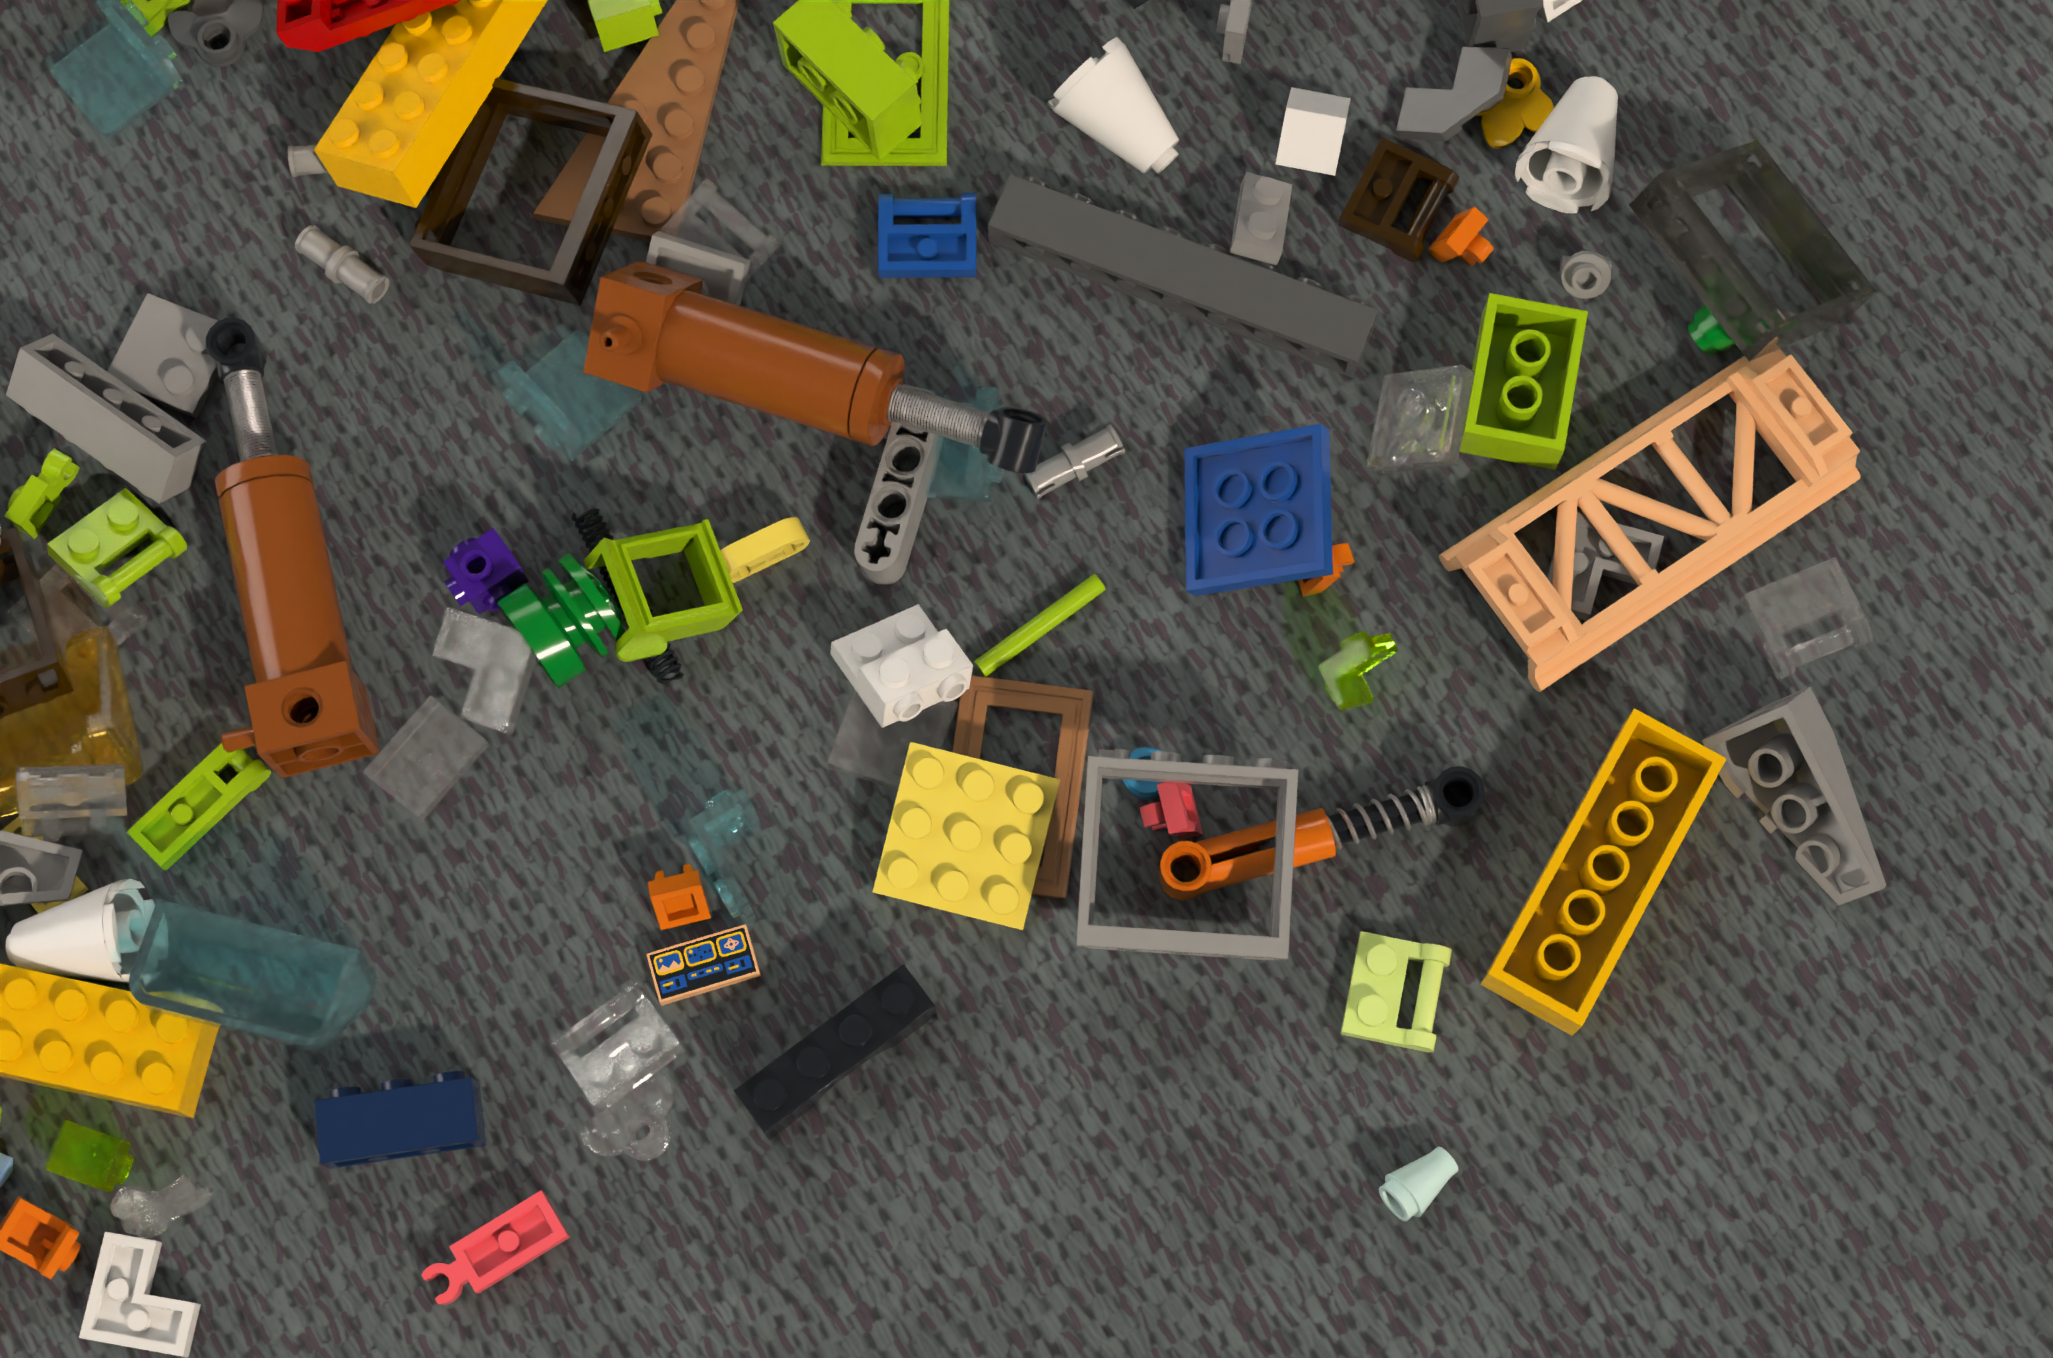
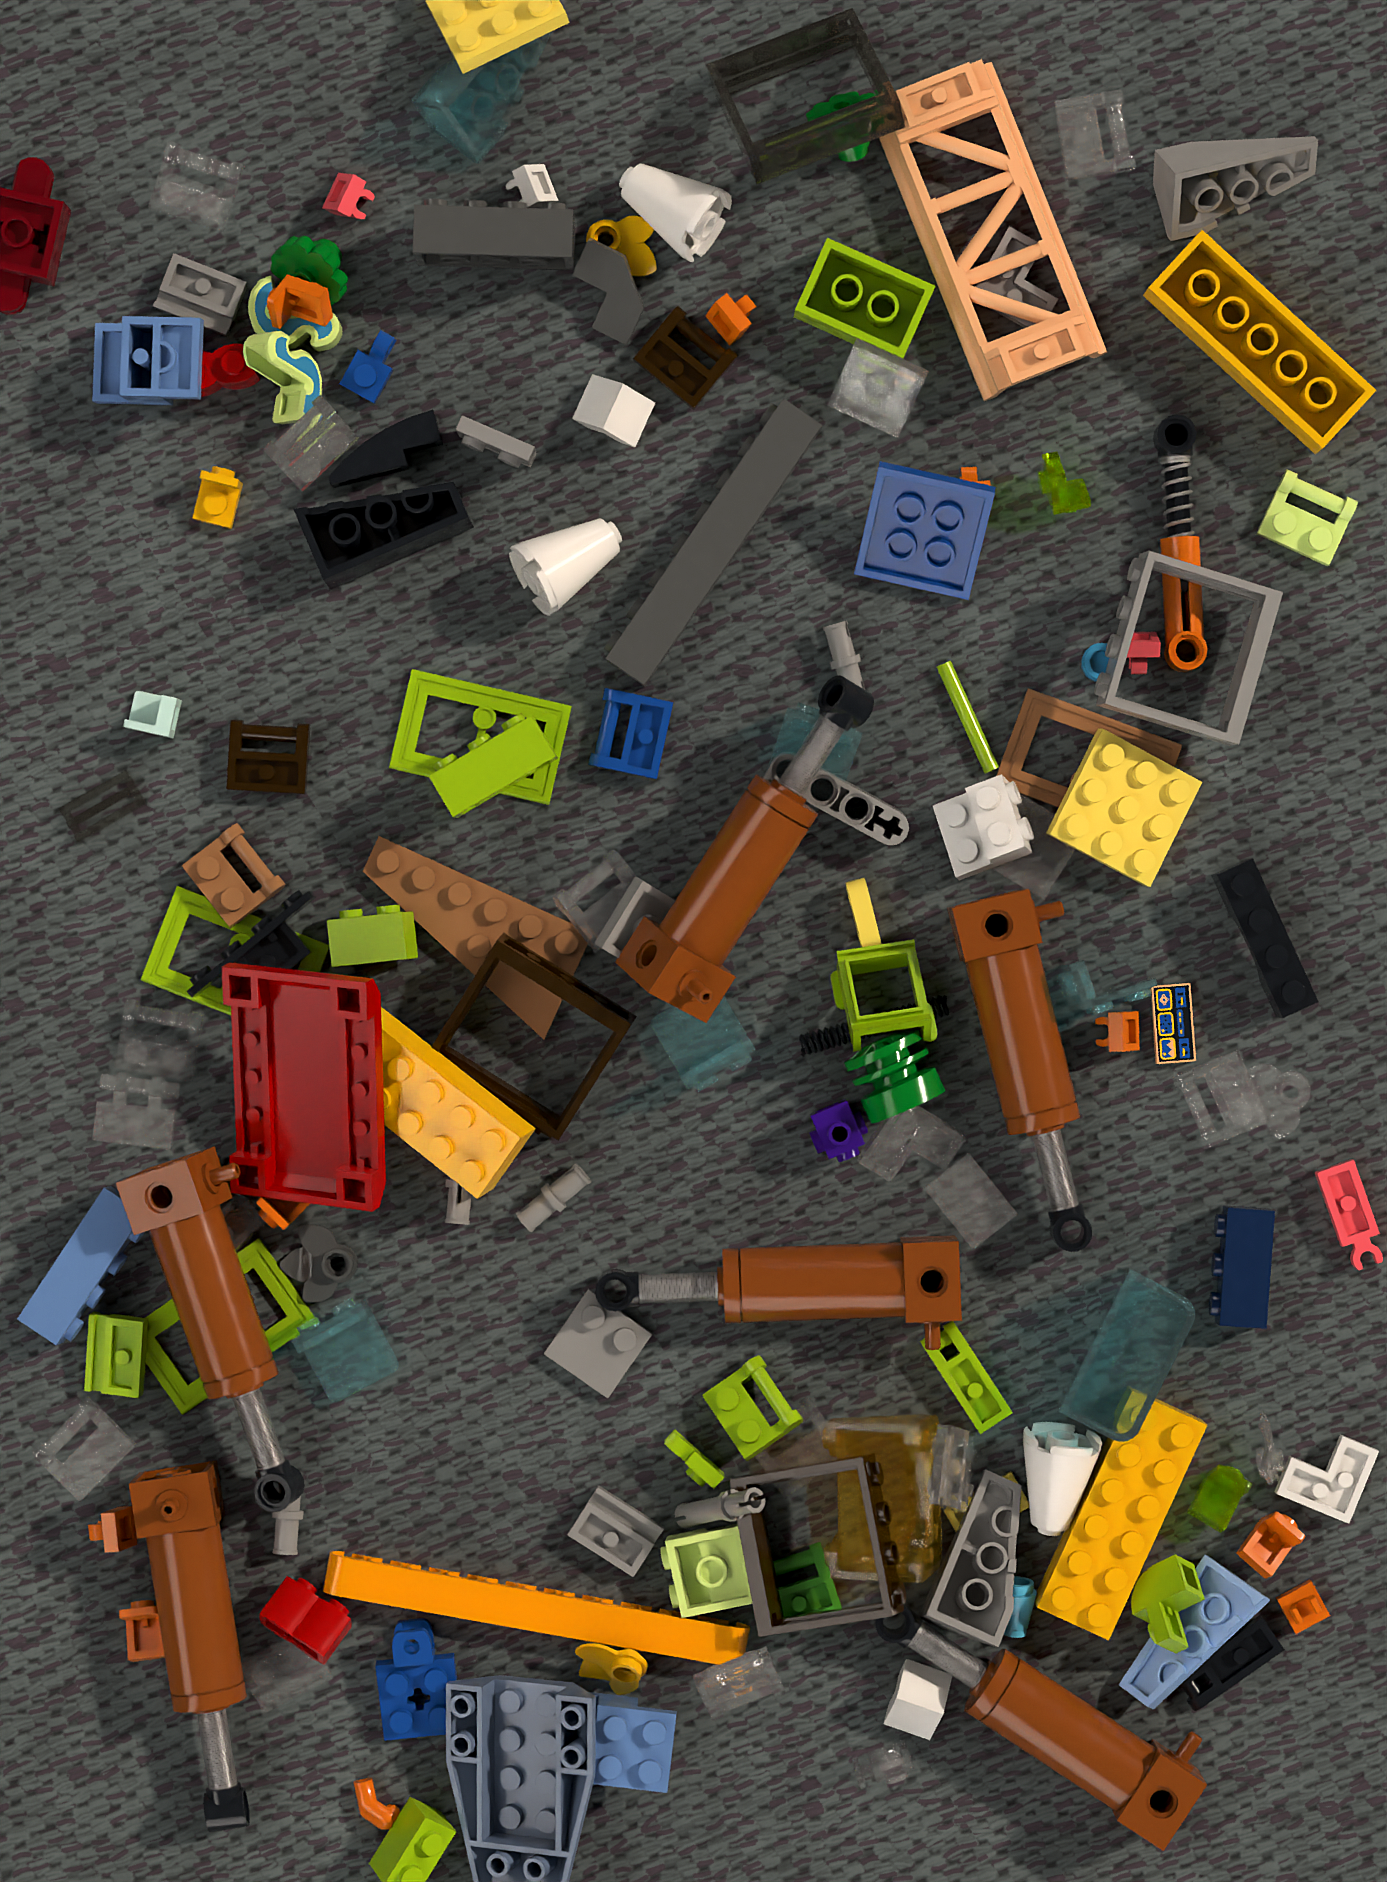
camera: 80 degrees left, 15 degrees up
(105, 418) = (647, 1400): light grey brick -> none
(643, 768) = (1023, 1038): none -> dark orange piece
(1261, 218) = (681, 469): light grey plate -> none
(1585, 274) = (780, 228): light grey plate -> none

